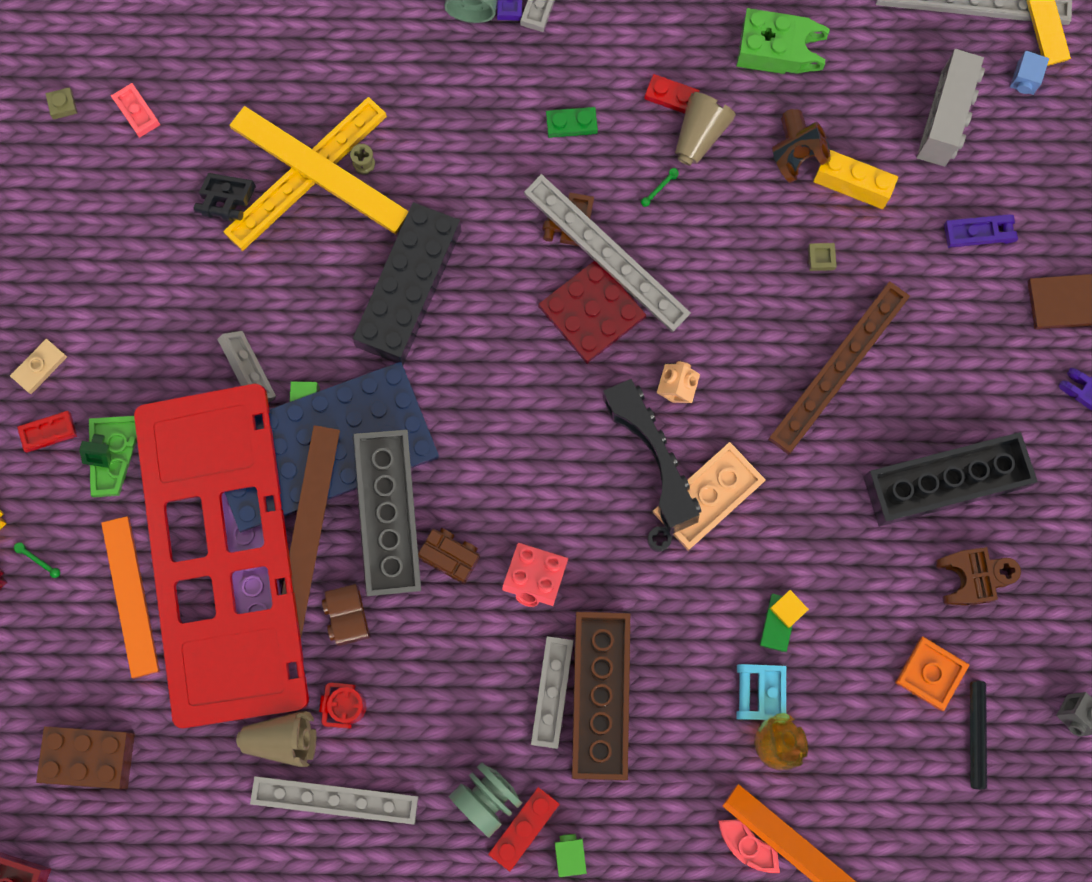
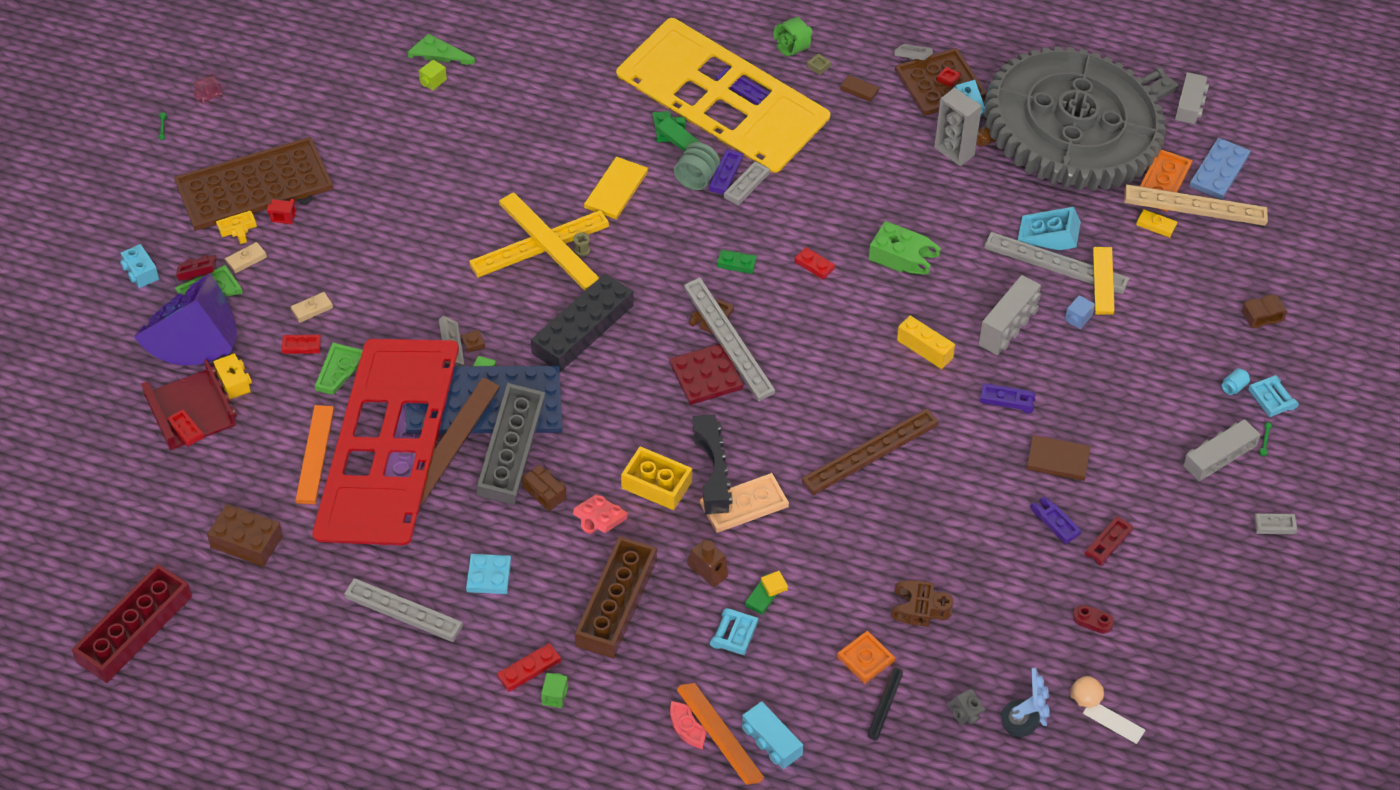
camera: 20 degrees right, 25 degrees down
(21, 548) = (253, 407): green hinge -> none
(61, 103) = (392, 165): olive plate -> none
(95, 452) = (329, 359): dark green tile -> none
(135, 110) = (439, 180): coral plate -> none
(227, 190) = (477, 241): black plate -> none
(273, 354) = (473, 341): none -> reddish brown plate
(280, 739) = (382, 559): dark tan cone -> none
(343, 705) = (435, 555): red piece -> none
(346, 615) = (458, 502): reddish brown brick -> none
(374, 51) = (616, 187): none -> yellow tile
(423, 706) = (488, 574): none -> medium azure plate
(485, 799) = (513, 630): sand green wheel -> none
(552, 692) = (581, 590): light grey plate -> none
(589, 499) = (656, 478): none -> yellow brick
(653, 533) = (695, 516): black bush -> none
(673, 174) = (797, 309): green hinge -> none
(678, 382) = (748, 428): light nougat brick -> none
(696, 605) = (708, 562): none -> reddish brown torso
(701, 127) = (826, 283): dark tan cone -> none
(780, 742) = (733, 659): clear yellow cylinder -> none
(799, 144) = (896, 307): reddish brown connector -> none
(822, 256) = (884, 383): olive plate -> none
(860, 832) = (772, 735): none -> medium azure brick
(950, 479) = (923, 536): black brick -> none

